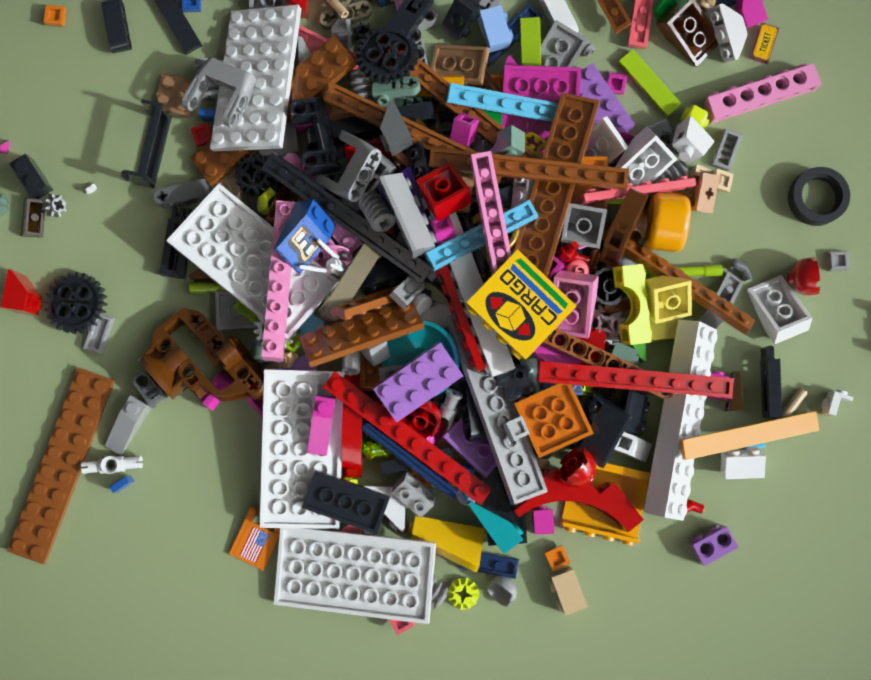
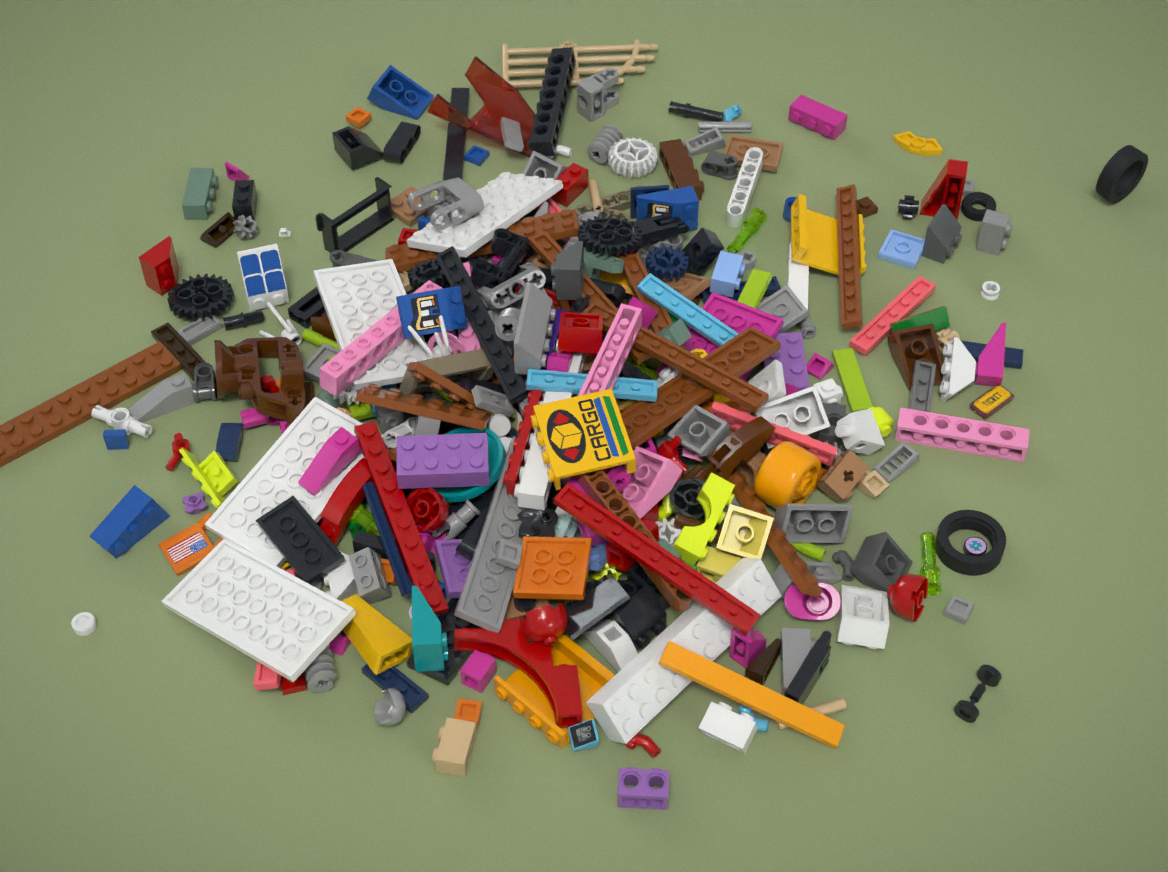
camera: 35 degrees right, 35 degrees down
(82, 56) = (355, 147): none -> black slope
(100, 364) = (178, 348): none -> dark brown tile
(120, 261) = (263, 277): none -> slope
(128, 304) = (243, 319): none -> black axle
(178, 460) = (176, 446): none -> red piece
(181, 299) = (289, 331): none -> white plant
(196, 555) = (129, 522): none -> blue wedge
(199, 358) = (268, 384): none -> red piece
(211, 431) = (229, 440): none -> dark blue slope
(224, 472) = (212, 473): none -> neon yellow bracket
(228, 653) = (83, 624): none -> white tile
(234, 502) = (194, 503): none -> medium lavender plate
(440, 54) = (666, 262): none -> dark blue gear
(457, 586) = (348, 704): neon yellow gear -> none
(644, 114) = (829, 391): none -> white brick
(648, 527) = (583, 735): none -> slope
(705, 250) = (814, 522): none -> light grey slope
(709, 64) = (922, 386): none -> dark grey tile
(732, 333) = (811, 607): none -> dark pink piece
(753, 377) = (794, 650): none -> light grey slope
(767, 255) = (880, 562): none -> dark grey slope
(803, 240) = (929, 566): none -> clear neon green pin
(822, 197) = (975, 546): none -> tile
(831, 402) = (868, 725): white bracket -> none

